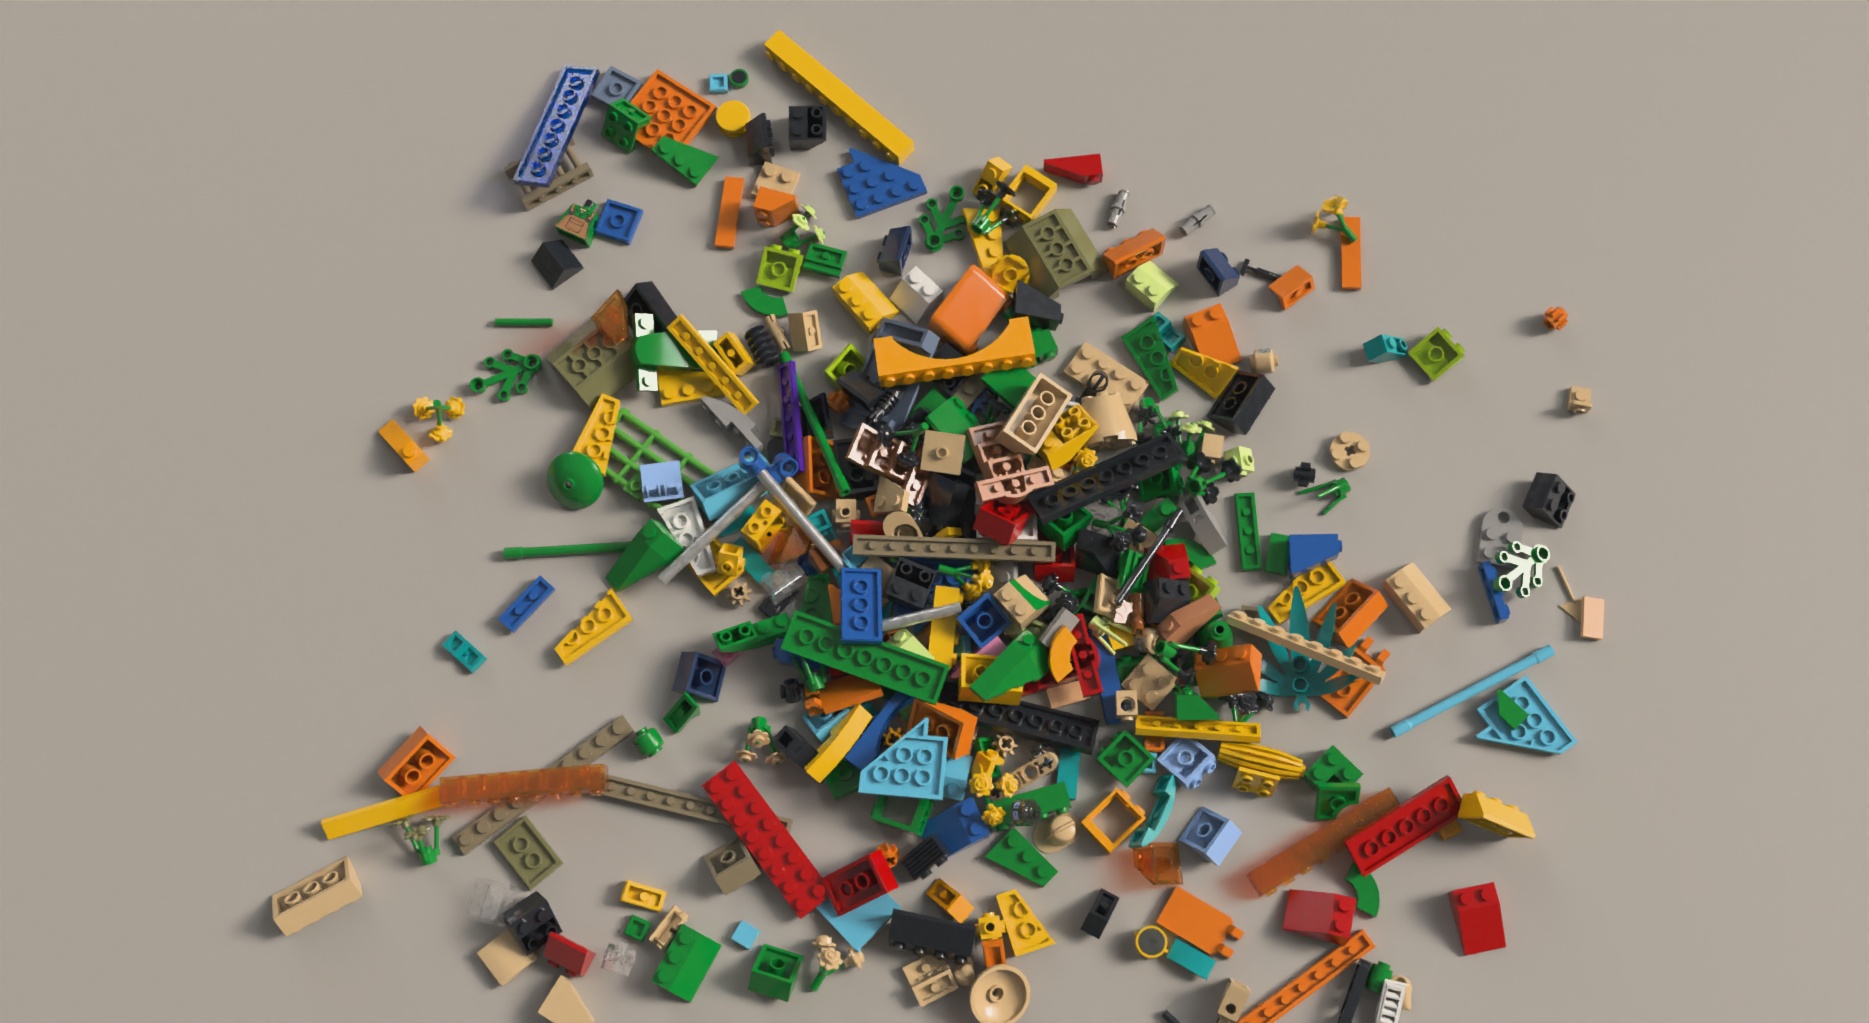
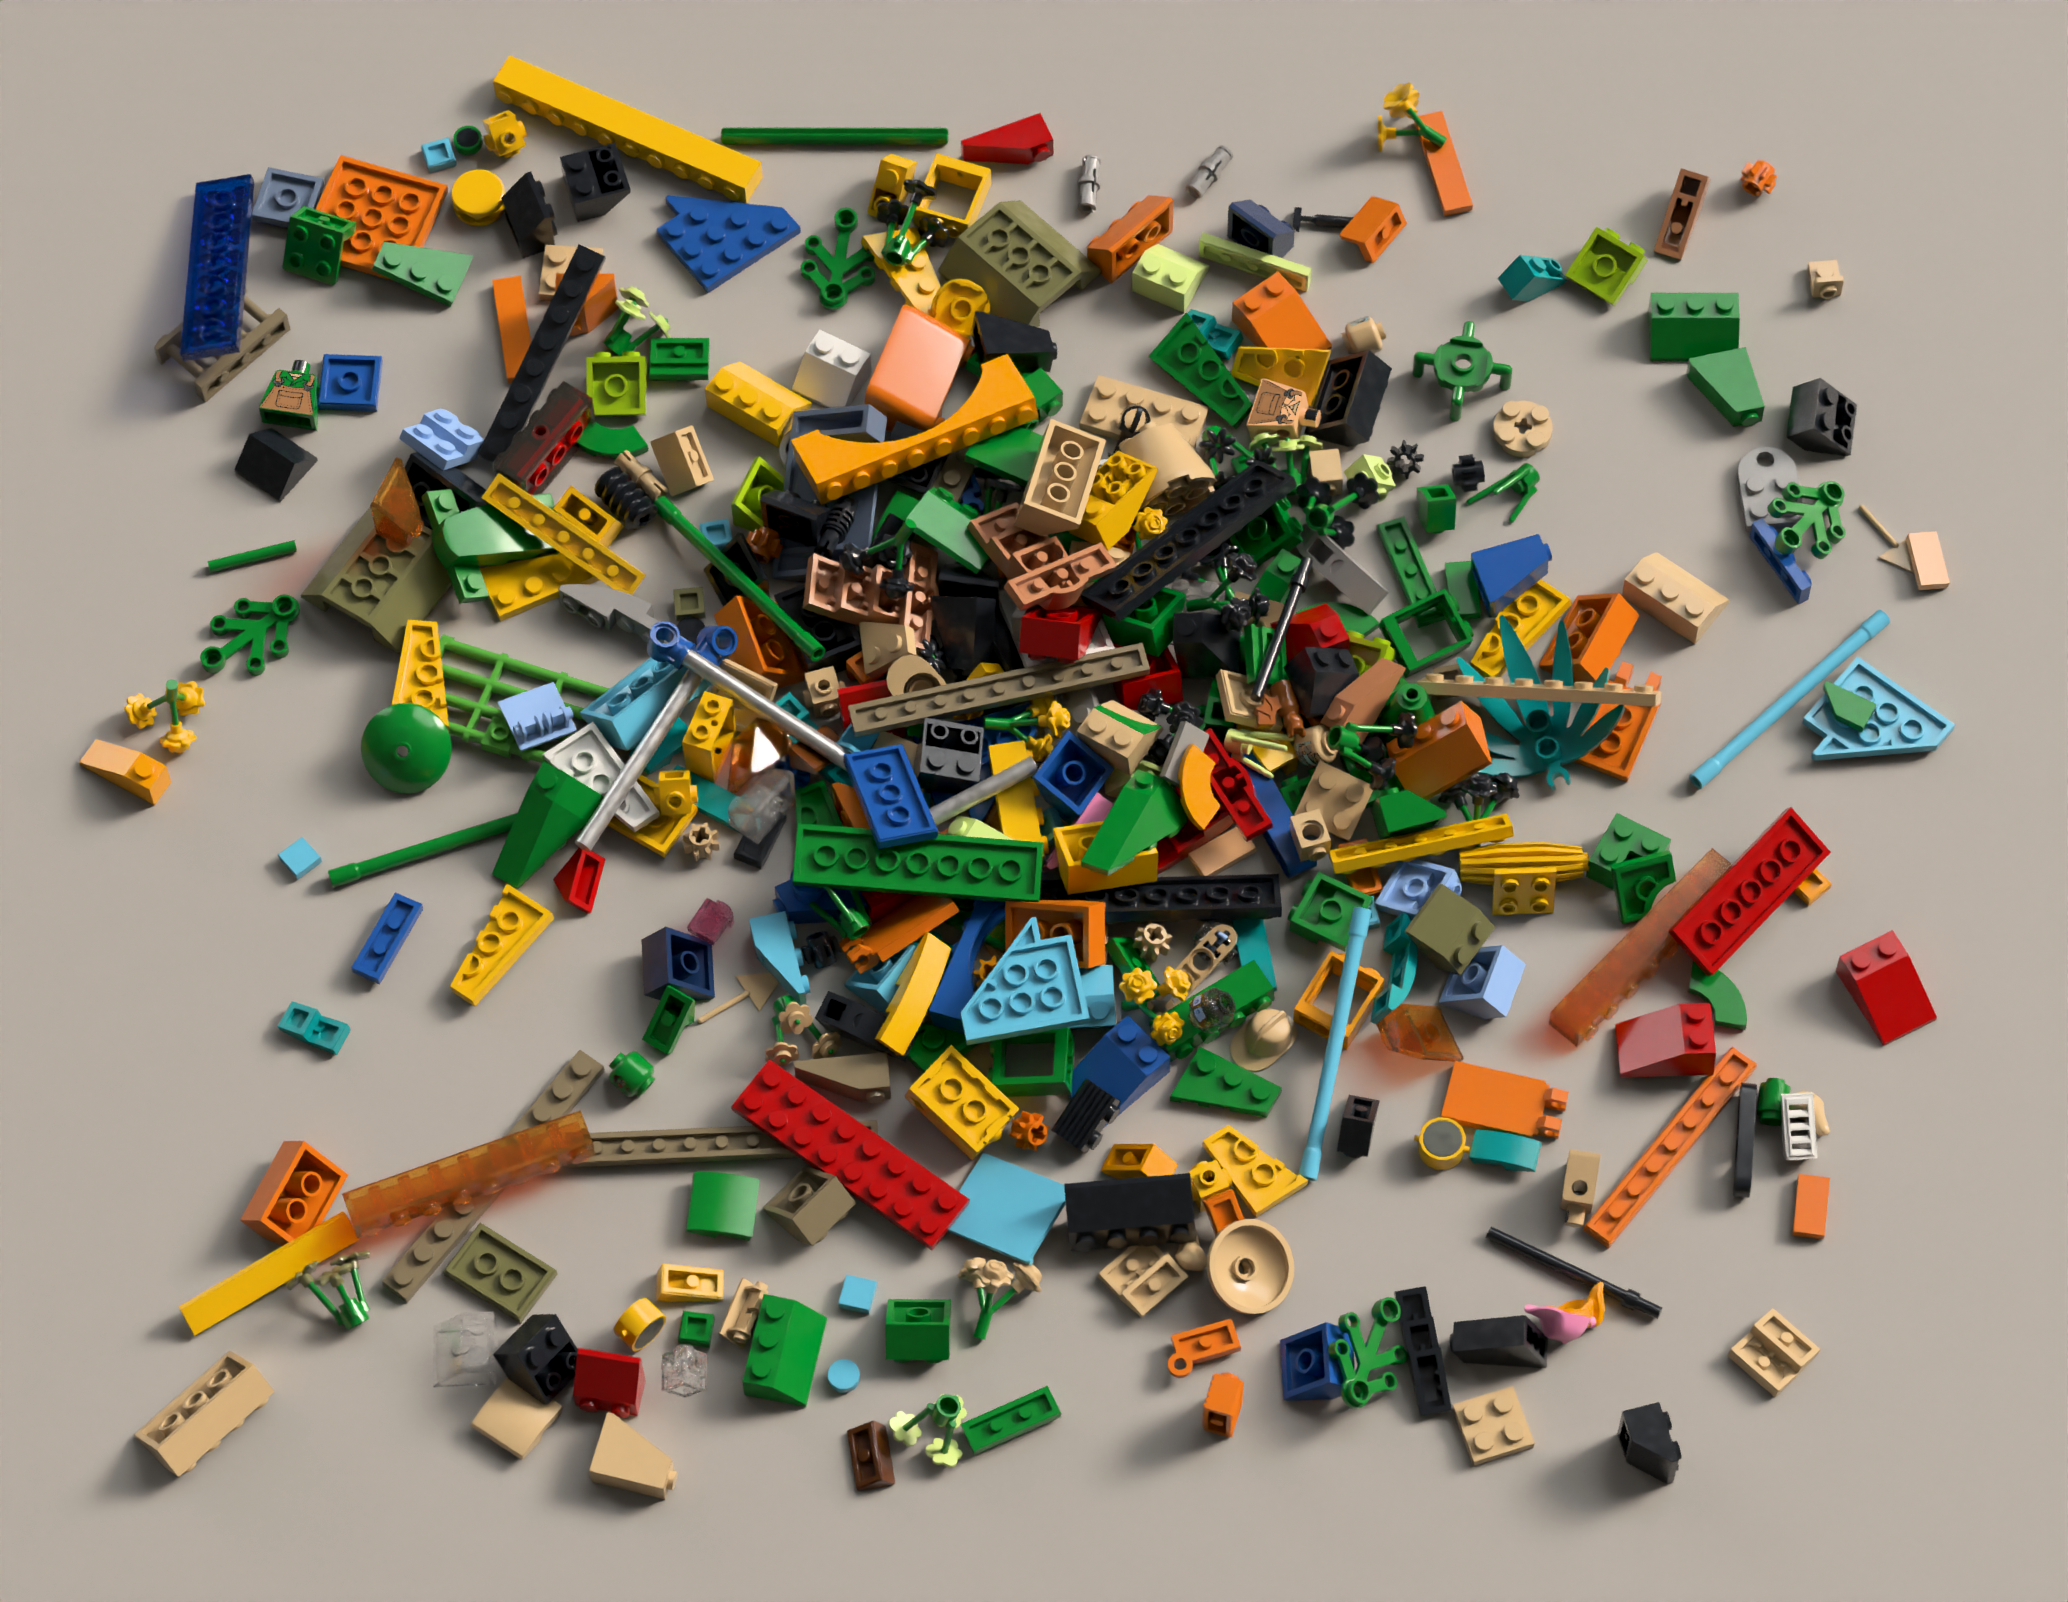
camera: 20 degrees left, 10 degrees down
(490, 533) = (300, 858): none -> medium azure tile
(600, 918) = (639, 1324): none -> yellow piece
(656, 598) = (580, 879): none -> red slope
(660, 277) = (443, 439): none -> light blue plate
(678, 848) = (722, 1205): none -> green slope
(719, 989) = (843, 1376): none -> medium azure tile
(721, 298) = (547, 441): none -> clear smoke brick
(736, 238) = (543, 351): none -> black plate
(747, 704) = (756, 986): none -> tan piece
(752, 636) = (741, 889): green slope -> none
(761, 81) = (502, 125): none -> yellow brick
(764, 679) = (776, 952): none -> medium azure slope
(790, 785) = (854, 1076): none -> dark tan slope
(791, 413) = (698, 572): dark purple tile -> none
(813, 385) = (717, 532): none -> medium azure tile
(847, 826) = (961, 1102): none -> yellow piece
(859, 882) = (1003, 1170): red slope -> none
(895, 250) = (780, 318): dark blue slope -> none
(943, 452) = (943, 563): tan plate -> none
(967, 134) = (834, 135): none -> green axle
(985, 762) = (1128, 961): yellow bracket -> none
(1064, 924) = (1312, 1152): none -> medium azure piece
(1194, 399) = (1281, 411): none -> torso
(1198, 796) = (1449, 930): none -> olive slope
(1208, 290) = (1253, 261): none -> yellowish green tile
(1222, 576) = (1449, 607): none -> green window
(1261, 455) = (1411, 454): none -> black gear
(1276, 493) = (1436, 508): none -> green brick
(1321, 410) = (1458, 379): none -> green plate
(1482, 411) = (1692, 324): none -> green slope
(1494, 459) = (1729, 385): none -> slope
(1495, 816) = (1868, 846): yellow slope -> none
(1497, 330) = (1682, 213): none -> nougat slope

